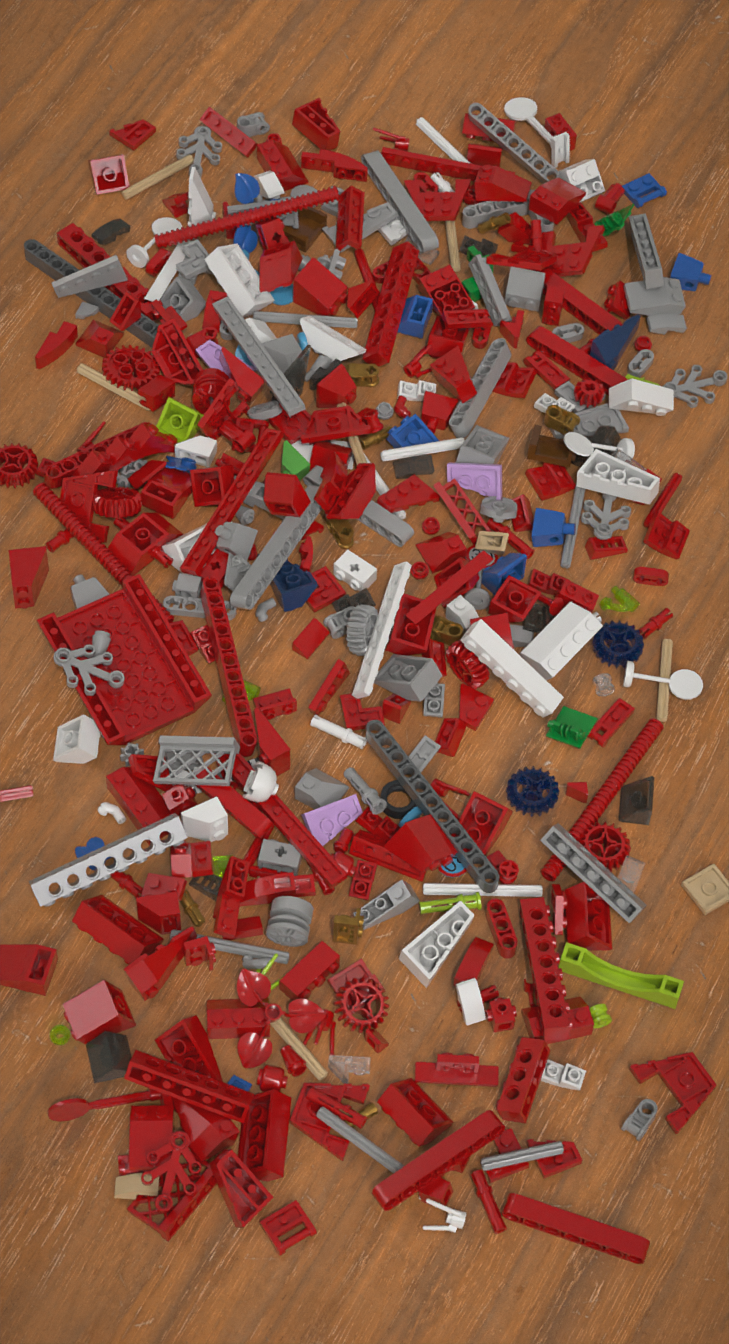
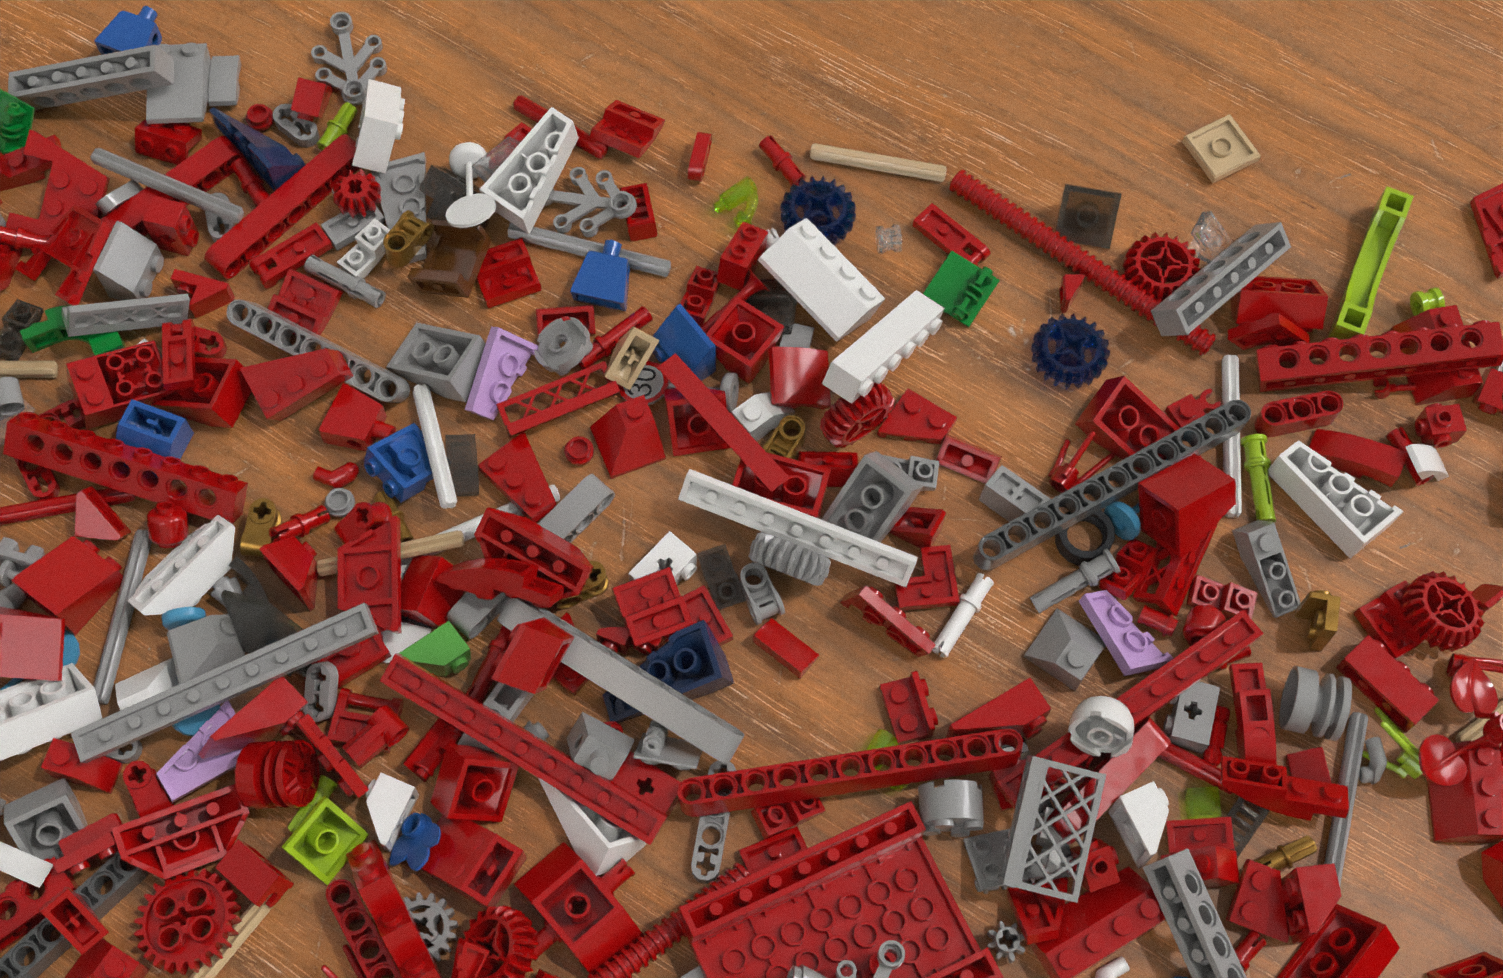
camera: 85 degrees left, 10 degrees up
(146, 472) = (441, 895): red slope -> none
(151, 972) = (1412, 921): red wedge -> none
(187, 586) = (677, 838): light grey brick -> none
(198, 951) = (1374, 842): red bracket -> none
(210, 717) = (951, 807): none -> light grey brick
(262, 609) = (737, 719): light grey arm -> none
(325, 560) = (651, 606): none -> red slope
(359, 329) = (167, 524): none -> red head
(365, 390) = (300, 524): none -> red pin
(413, 367) = (258, 450): red plant -> none
(413, 391) = (304, 451): white slope -> none
(419, 566) = (664, 466): red plate -> none
(509, 867) = (1220, 392): red wheel -> none
(528, 403) = (354, 286): none -> light grey pin
(571, 279) = (118, 197): none -> light grey beam
(579, 299) = (167, 185): none -> light grey axle
(656, 364) = (310, 99): none -> red slope
(682, 683) = (893, 136): white piece -> none

